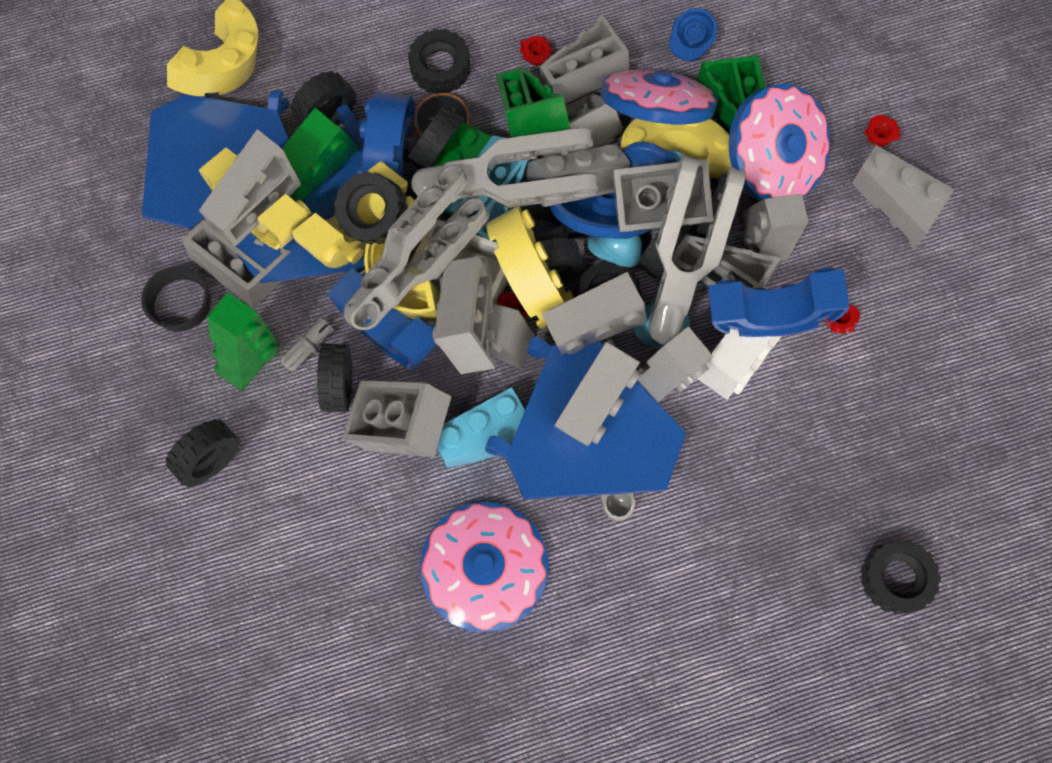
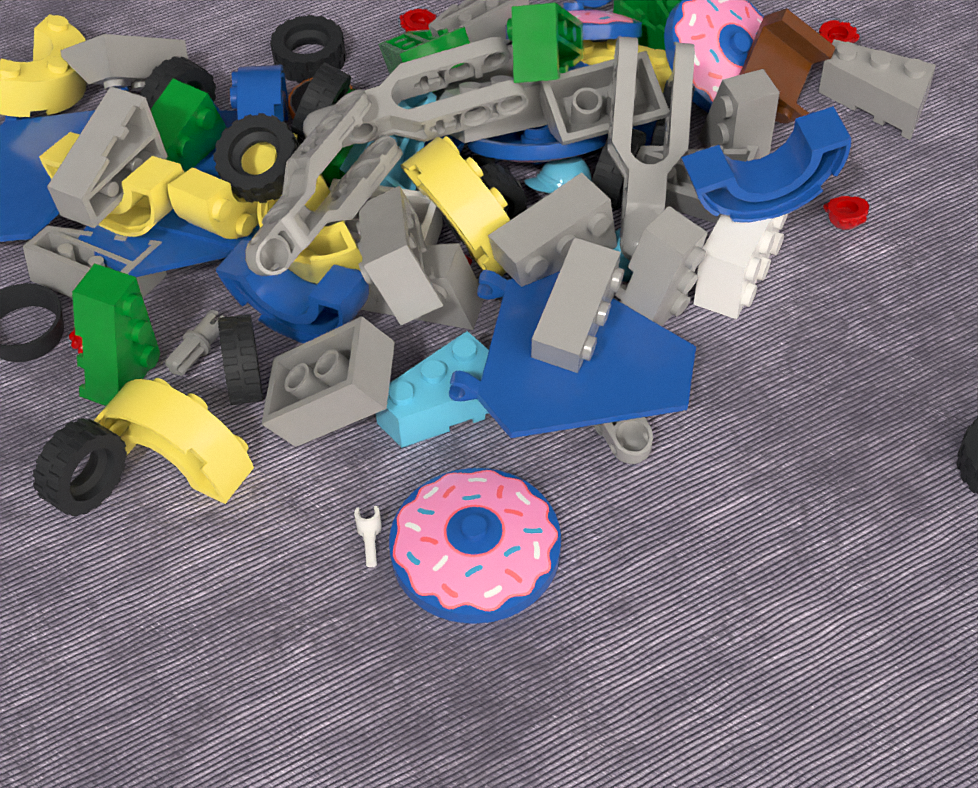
camera: 10 degrees left, 20 degrees down
(277, 435) = (181, 432): none -> light yellow brick
(286, 62) = (121, 59): none -> light grey slope
(408, 543) = (369, 529): none -> white hand
(621, 139) = (544, 41): none -> wedge
(822, 166) = (786, 52): none -> reddish brown panel

